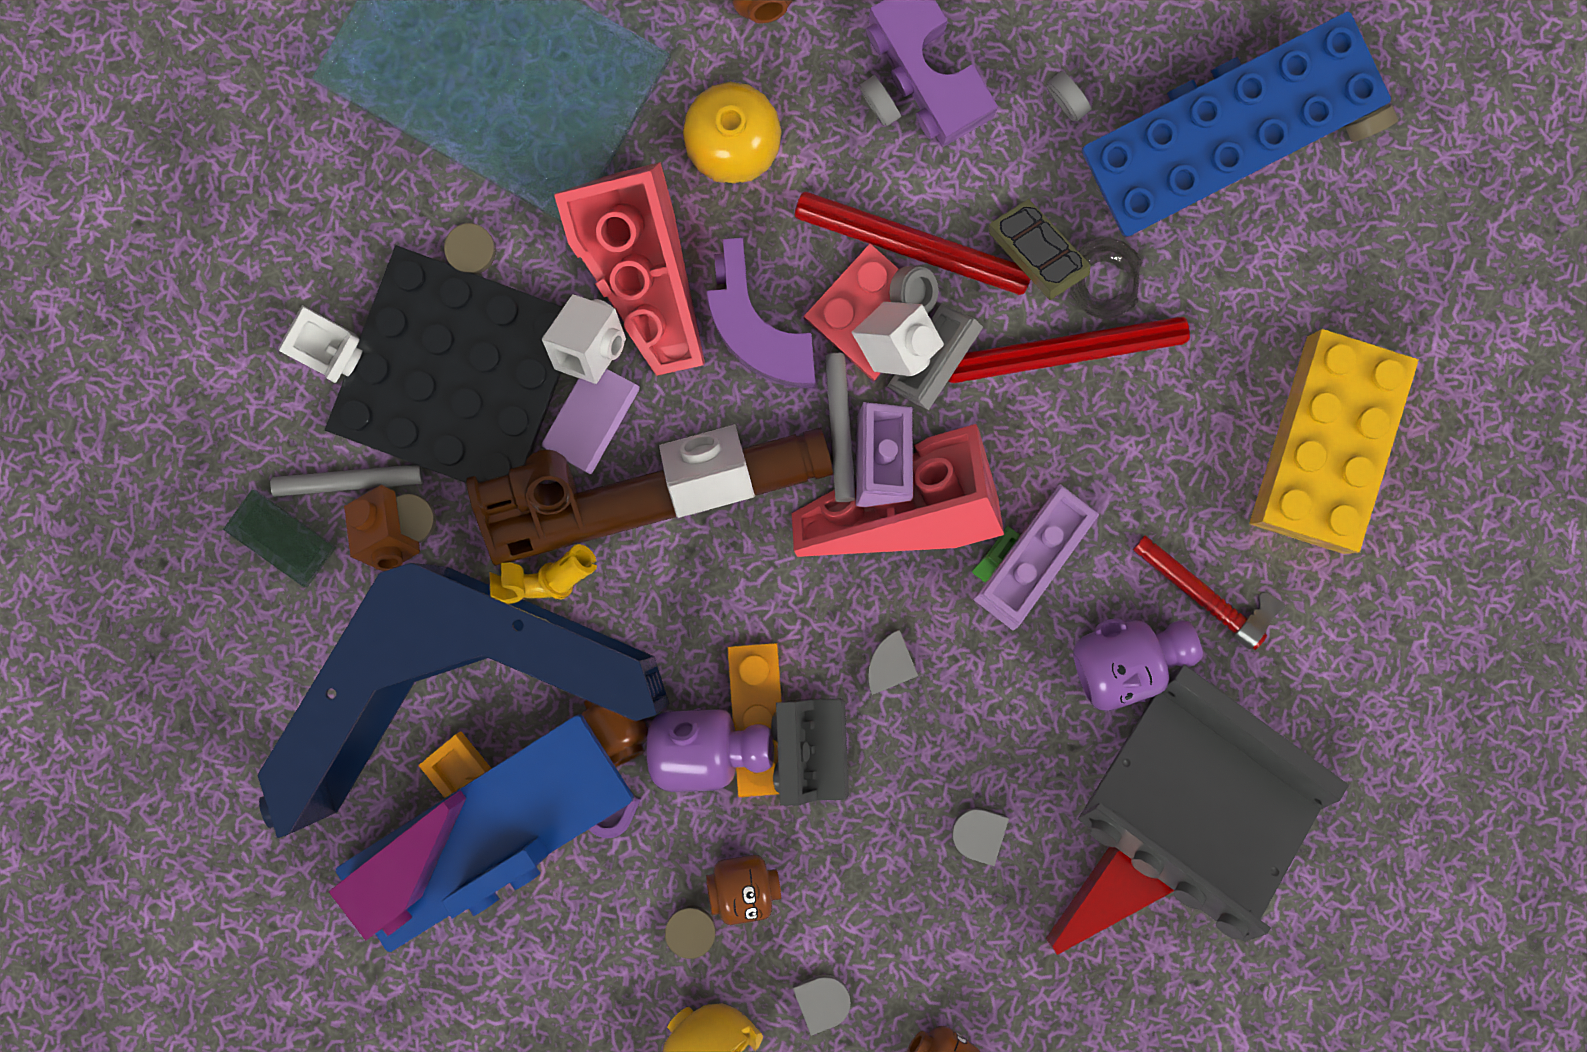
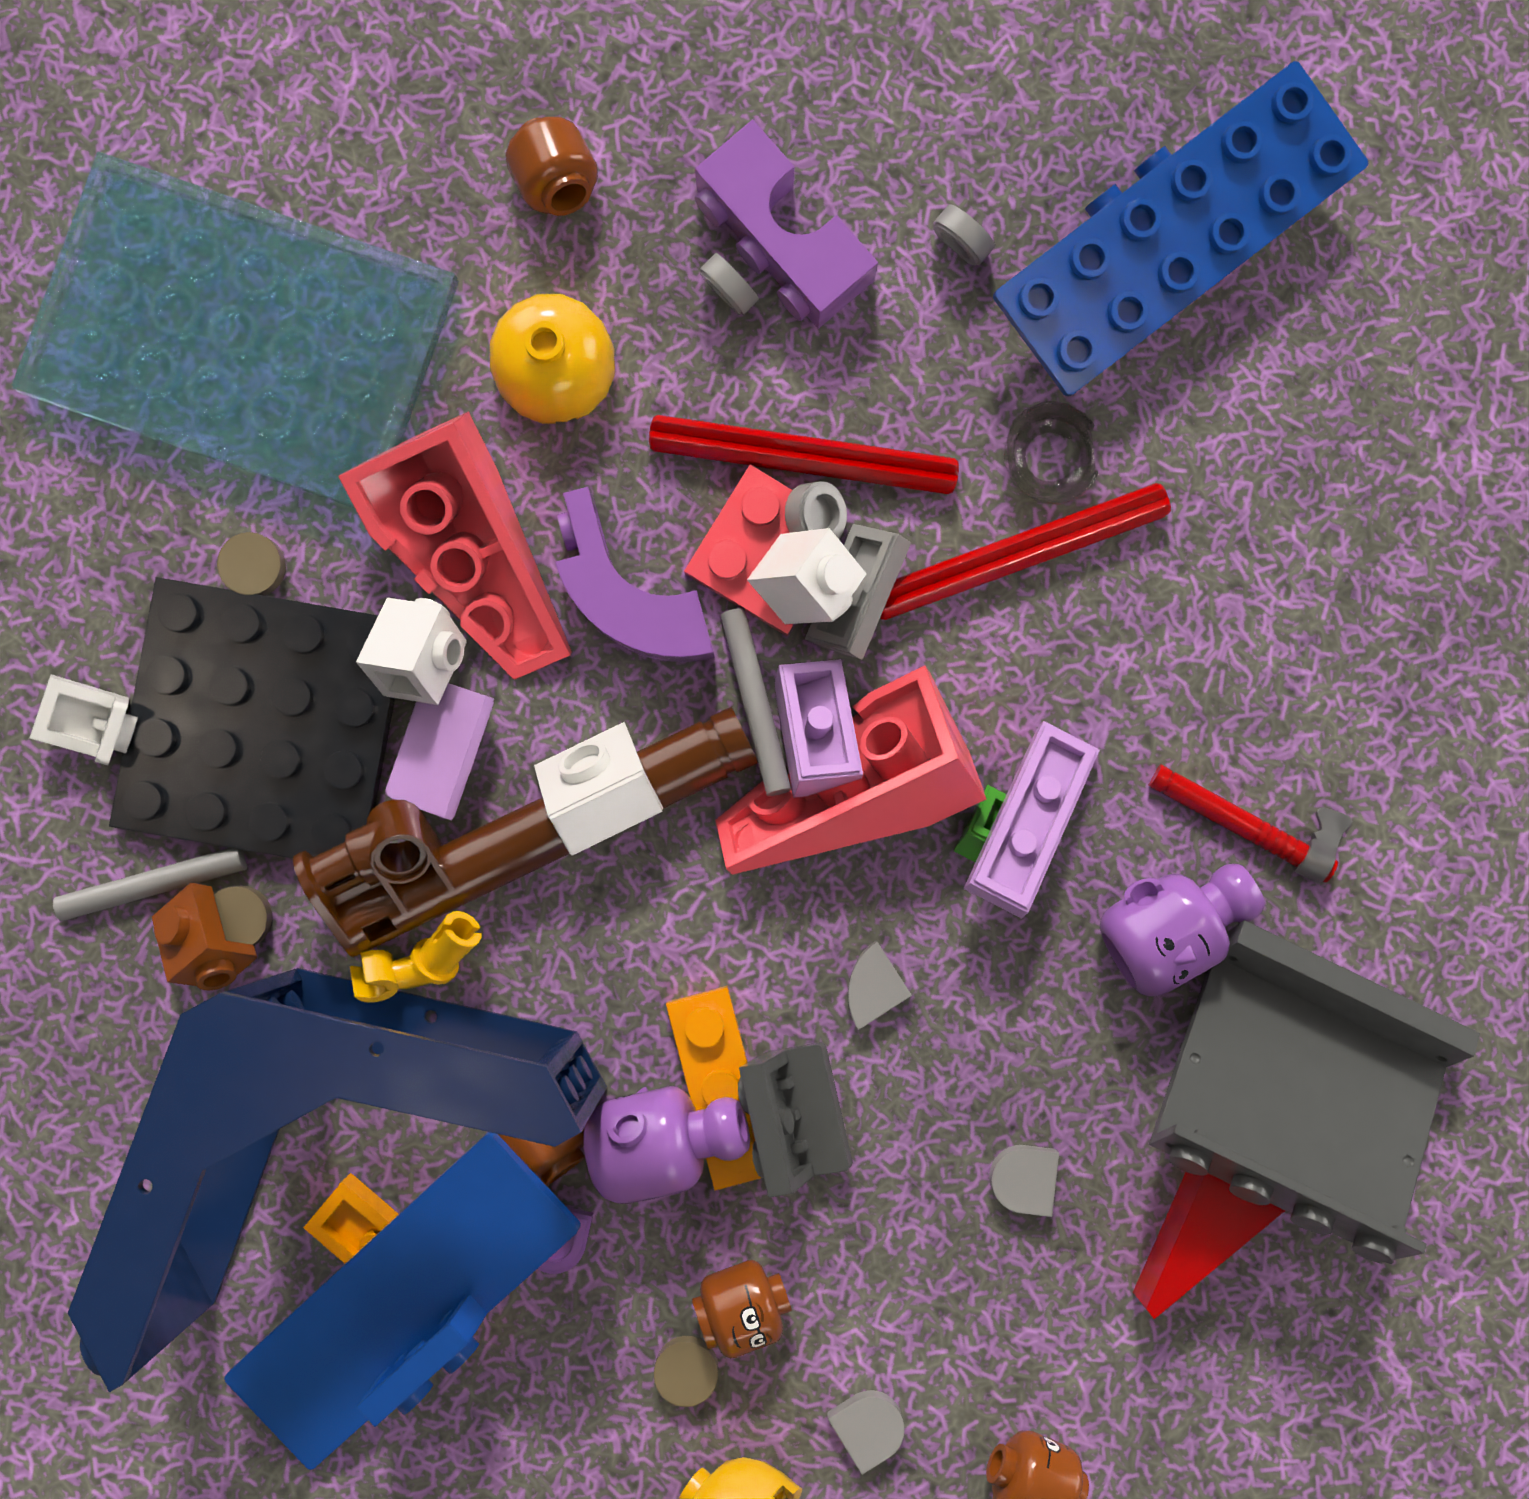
camera: 10 degrees left, 0 degrees up
(279, 538) = (78, 972): clear green tile -> none
(397, 876) = (298, 1381): magenta slope -> none
(1039, 249) = (963, 432): tile -> none
(1334, 441) = (1377, 604): yellow brick -> none
(1372, 123) = (1347, 198): dark tan tile -> none

